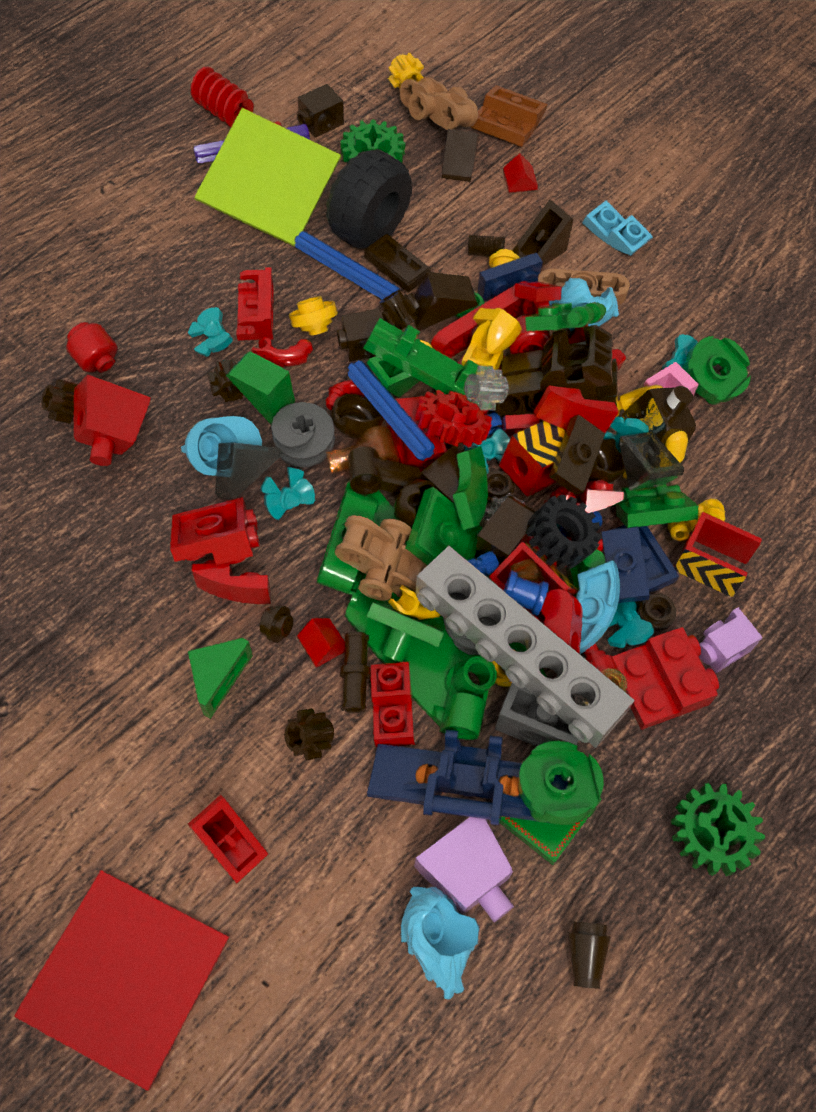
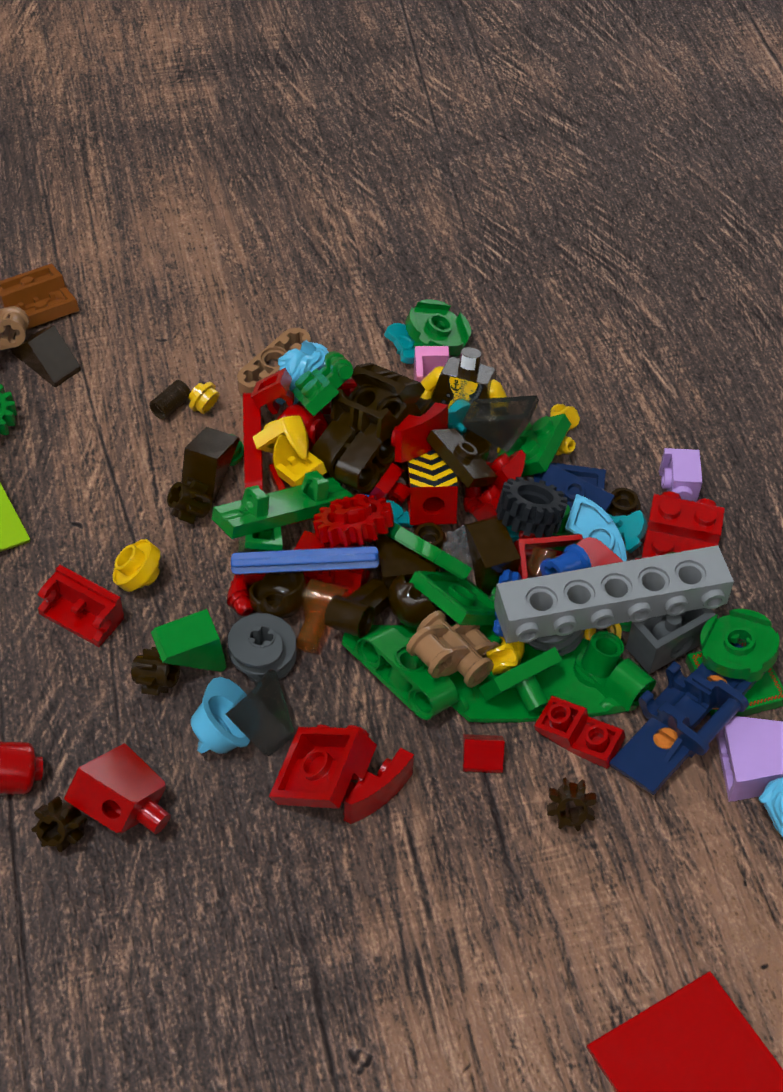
camera: 55 degrees left, 10 degrees down
(211, 325) = (67, 653): teal piece -> none
(216, 671) = (461, 849): green slope -> none
(227, 839) = (625, 920): red slope -> none
(276, 623) = (444, 773): dark brown plate -> none
(289, 357) = (142, 625): red piece -> none
(298, 493) = (318, 699): teal piece -> none
(344, 265) = (96, 513): blue axle -> none
(355, 672) = (532, 741): dark brown pin -> none
(356, 331) = (192, 541): dark brown brick -> none
(368, 198) = (57, 444): black tyre -> none
(396, 262) = (130, 472): dark brown plate -> none
(486, 387) = (349, 476): clear gear -> none
(502, 277) = (228, 392): dark blue plate -> none
(519, 175) = (112, 332): red slope -> none
(547, 234) = (204, 351): dark brown slope -> none
(616, 231) = (242, 304): medium azure slope -> none
(721, 538) = (610, 449): piece -> none

